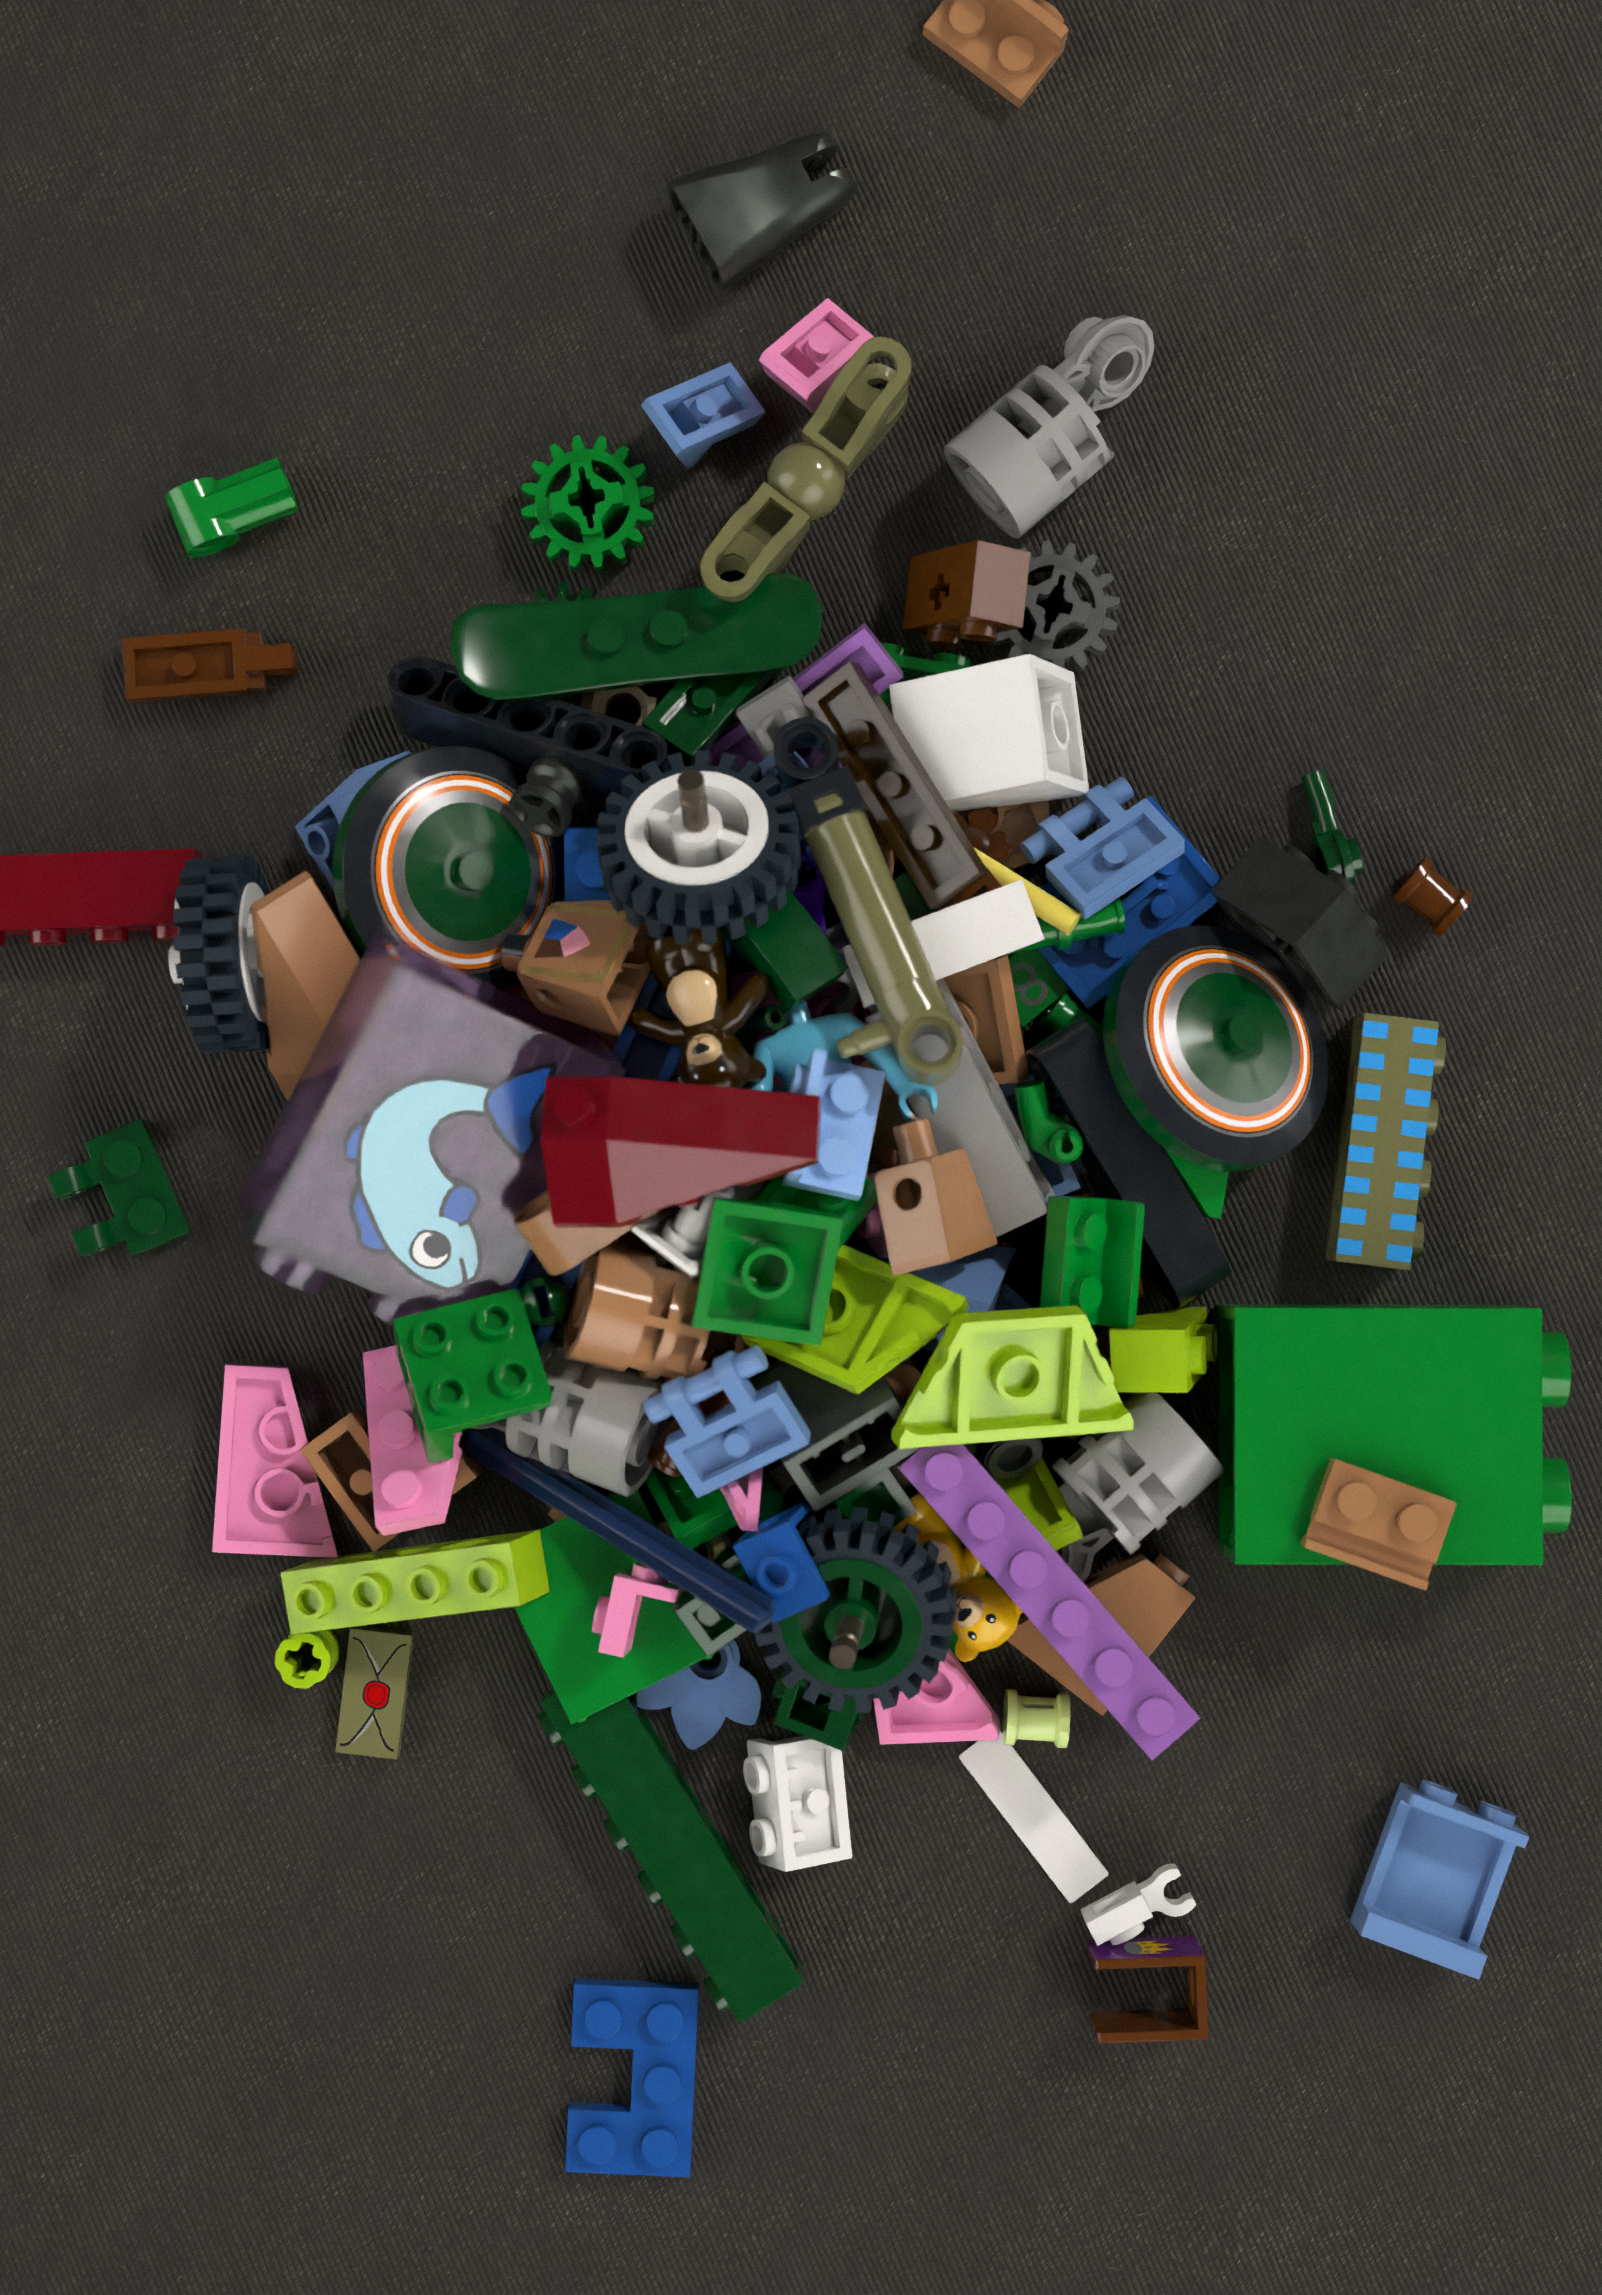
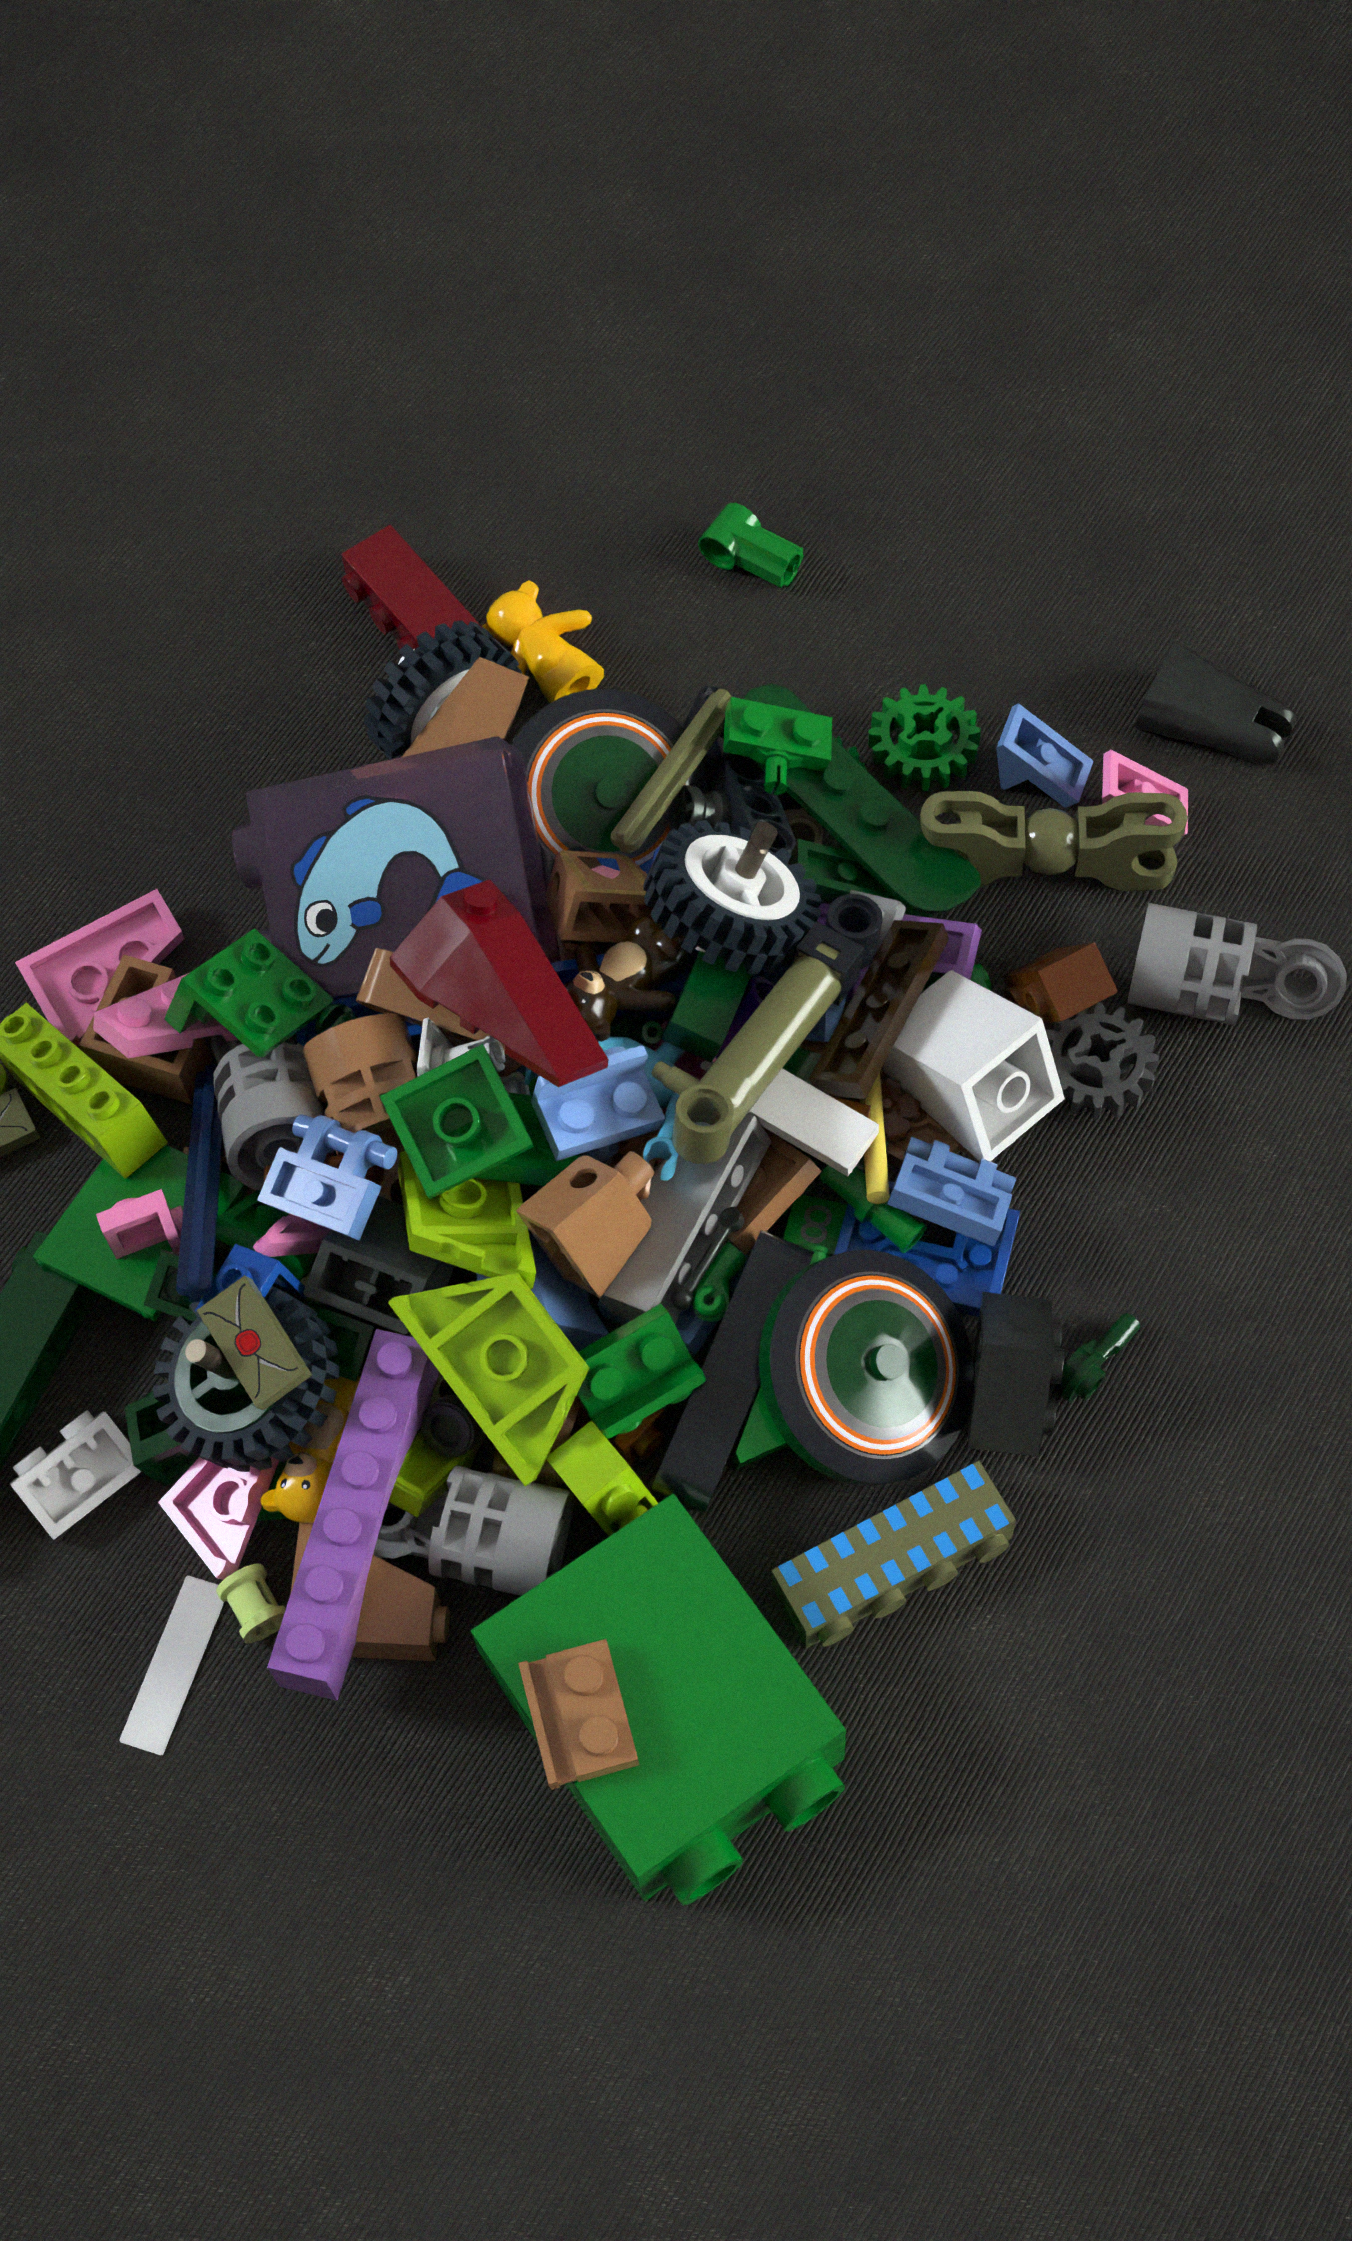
camera: 60 degrees right, 25 degrees down
(135, 1187) = (254, 762): dark green plate -> none
(202, 665) = (634, 596): reddish brown hinge -> none
(237, 803) = (536, 642): none -> yellow piece
(492, 790) = (671, 774): none -> olive axle
(528, 666) = (777, 738): none -> green plate
(706, 1696) = (116, 1352): medium blue plate -> none
(859, 1595) = (254, 1343): none -> olive tile
(1001, 1072) = (731, 1221): none -> pearl dark grey hinge
(1121, 1913) = (132, 1775): white plate -> none
(1153, 2024) = (125, 1858): reddish brown piece -> none
(1432, 896) = (1110, 1463): reddish brown bush -> none
(1437, 1876) = (325, 2022): medium blue panel -> none

